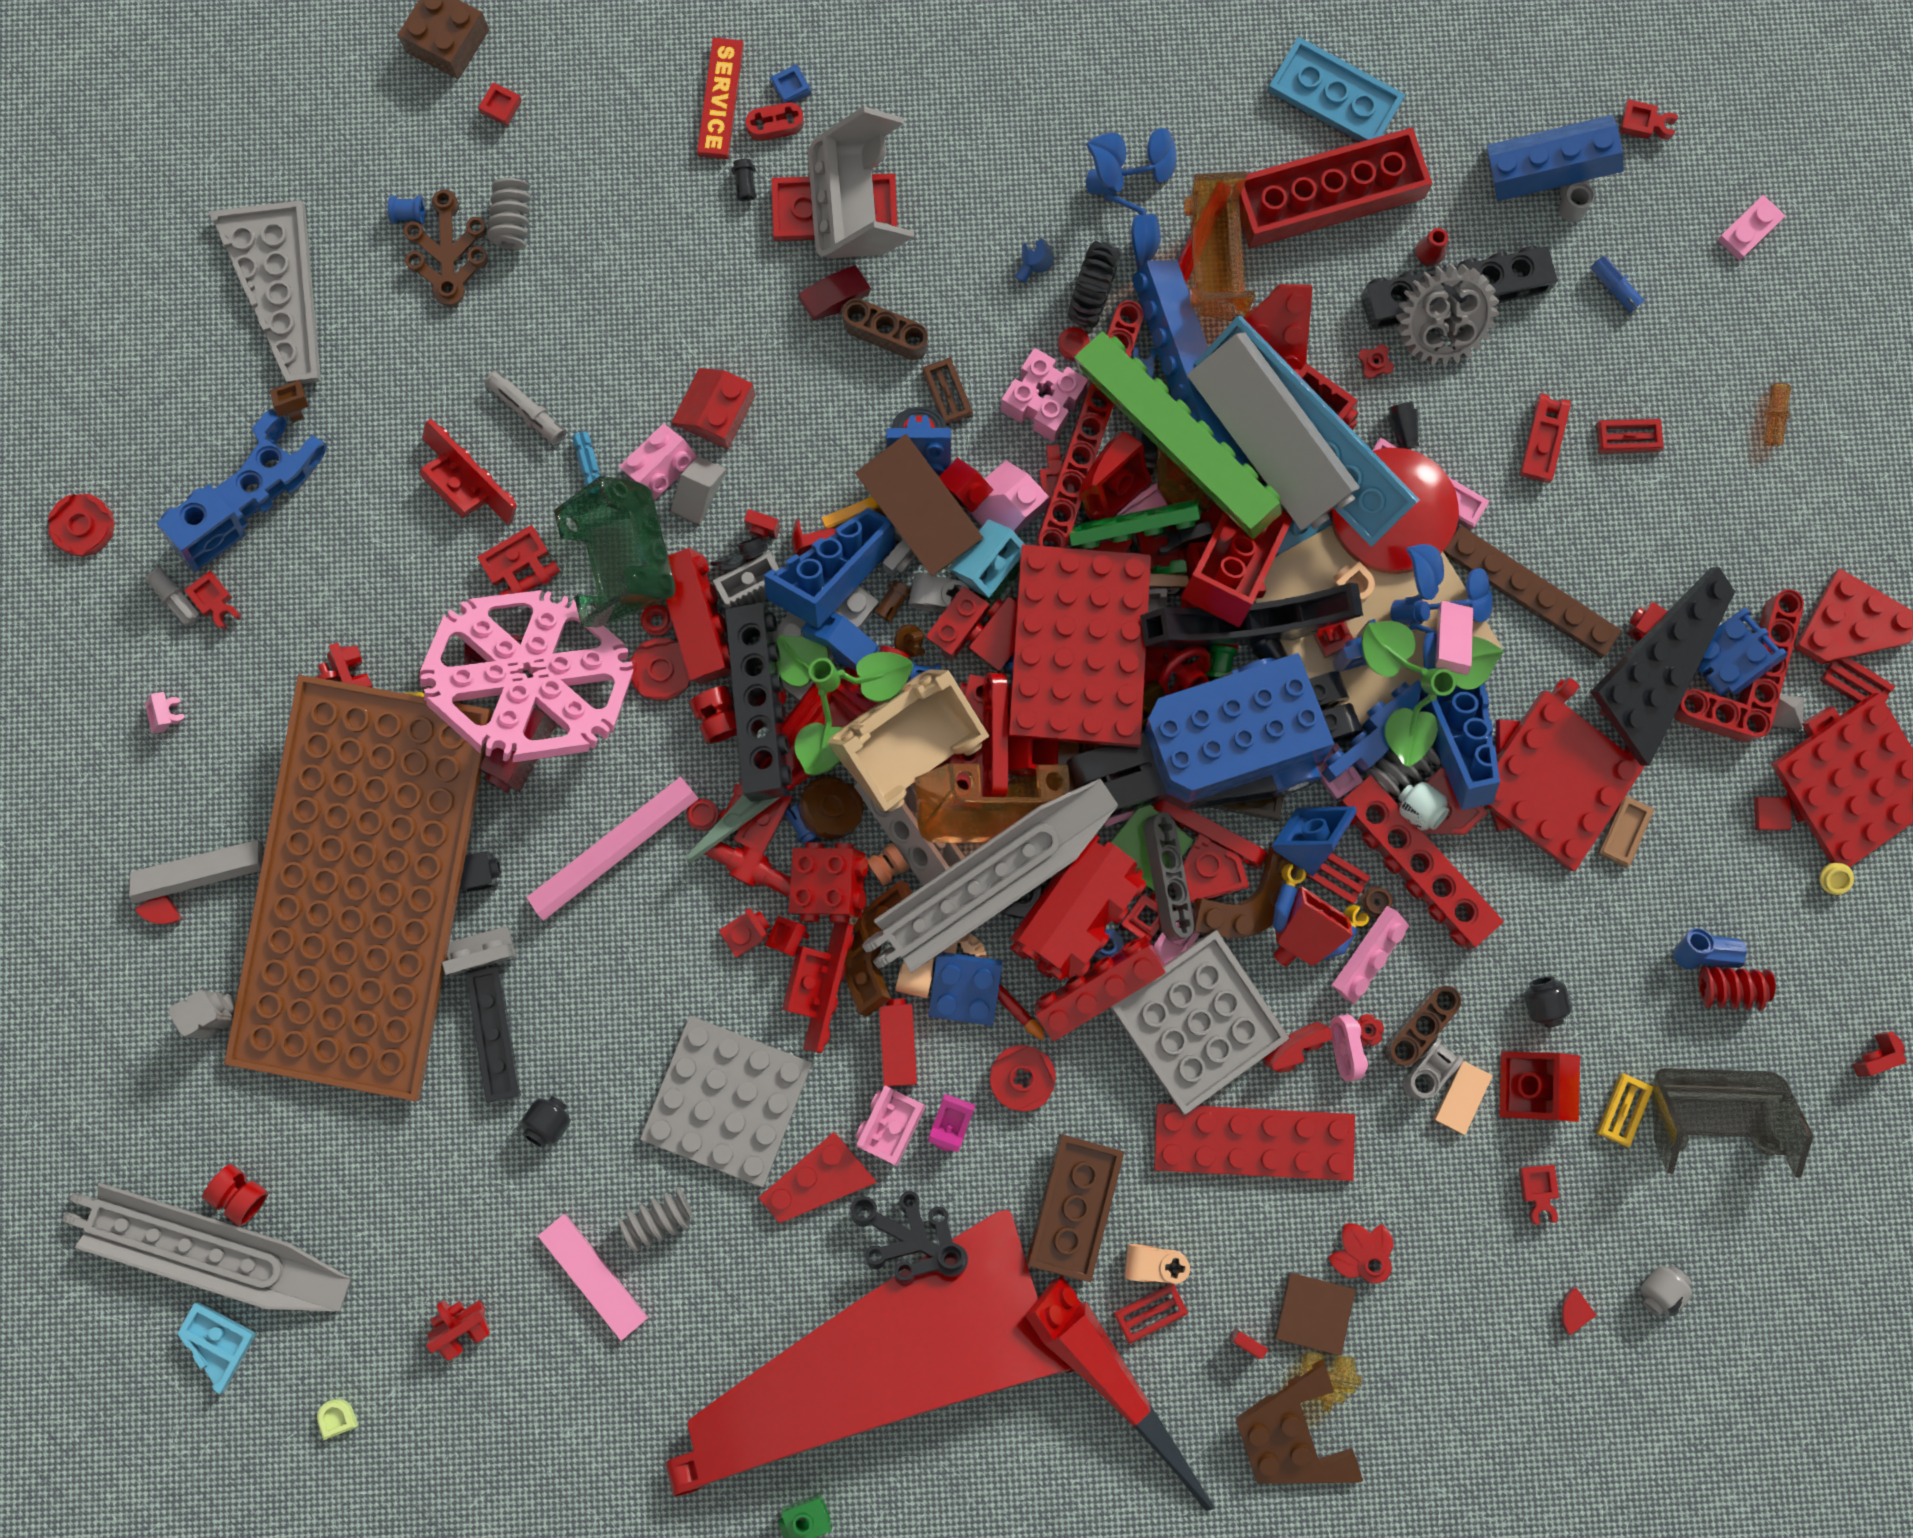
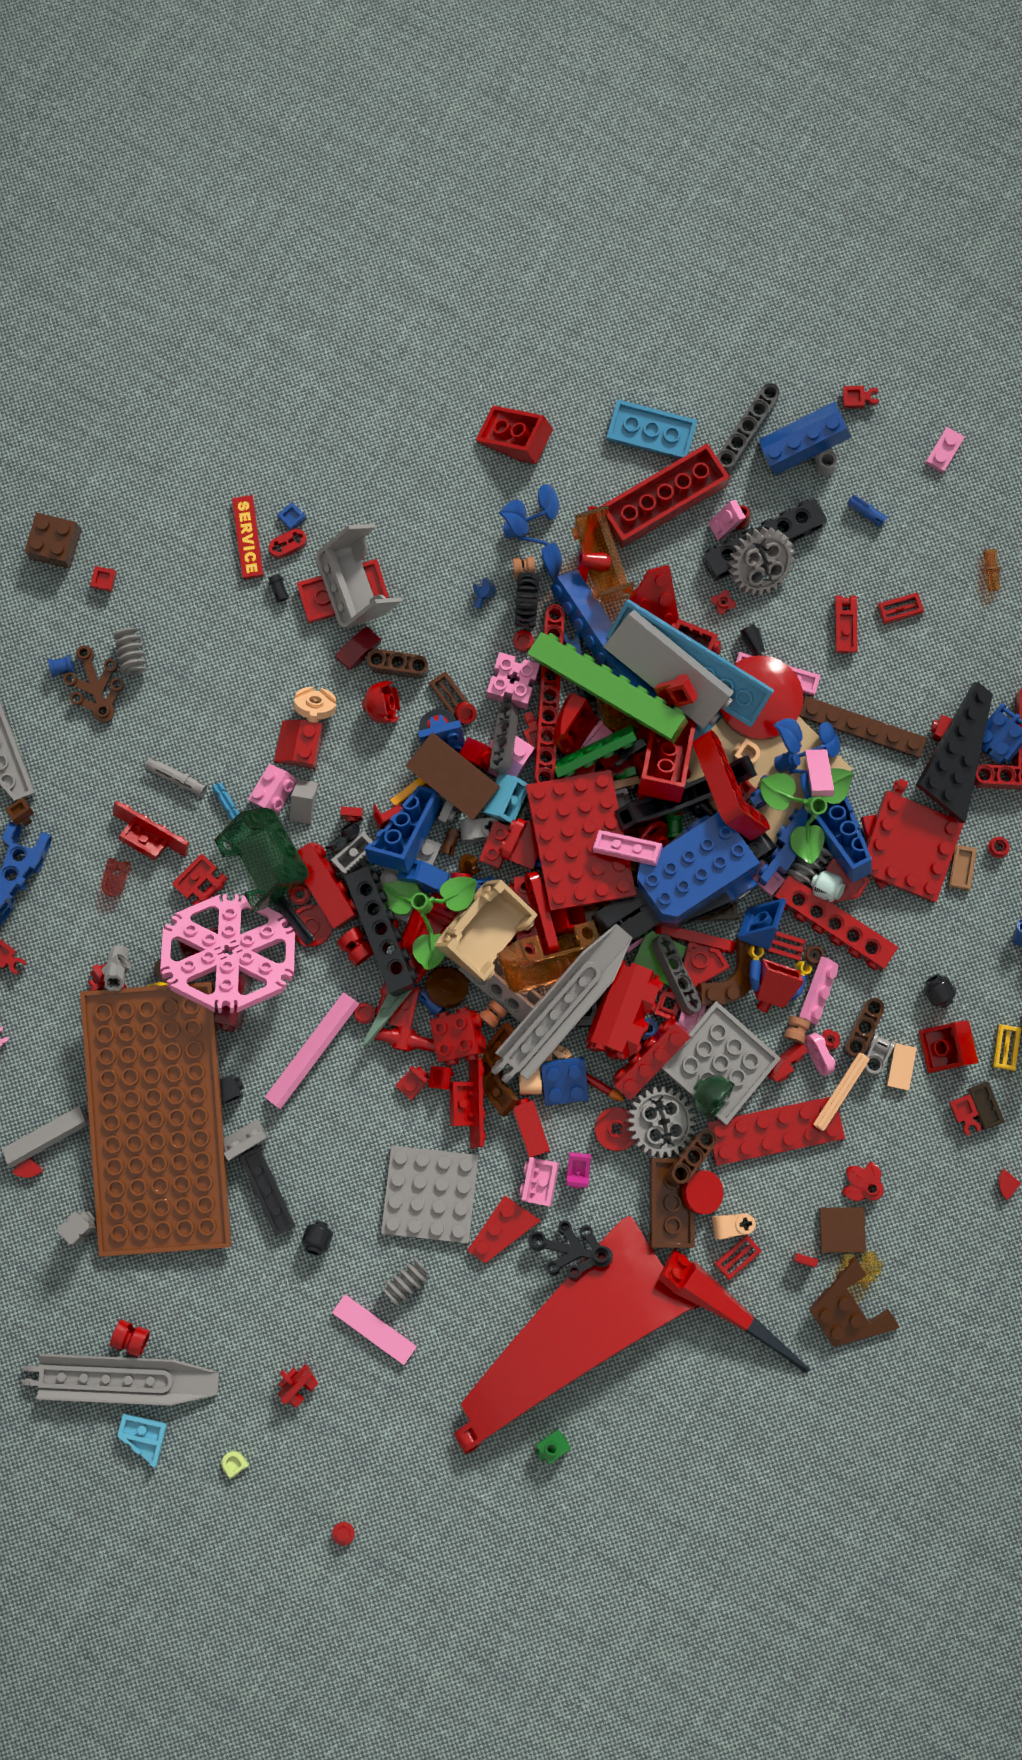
camera: 10 degrees left, 0 degrees up
(361, 655) = (116, 968): none -> light grey piece
(394, 538) = (111, 884): none -> clear red plate
(637, 655) = (294, 920): none -> black axle
(750, 355) = (314, 704): none -> light nougat plate
(847, 377) = (382, 702): none -> red cylinder
(963, 423) = (465, 713): none -> red tile
(990, 607) = (516, 830): none -> red plate
(1010, 470) = (502, 759): none -> dark grey beam
(1108, 235) = (528, 563): none -> nougat wheel
(1117, 1085) = (642, 1126): none -> light grey gear
(1124, 1204) = (703, 1192): none -> red tile
(1135, 1144) = (700, 1152): none -> reddish brown beam
(1140, 48) = (515, 433): none -> red slope
(1145, 672) = (627, 847): none -> bright pink tile
(1175, 1064) = (711, 1094): none -> clear green cylinder
(1208, 254) = (597, 561): none -> red cone
(1278, 464) = (677, 691): none -> red brick
(1312, 625) = (725, 789): none -> red beam
(1323, 1002) = (796, 1029): none -> nougat wheel
(1366, 1111) = (841, 1091): none -> light nougat axle
(1411, 244) = (726, 520): none -> bright pink plate
(1484, 115) = (752, 420): none -> dark grey beam
(1574, 1187) = (986, 1105): none -> dark brown plate
(1694, 811) = (1004, 845): none -> red plate

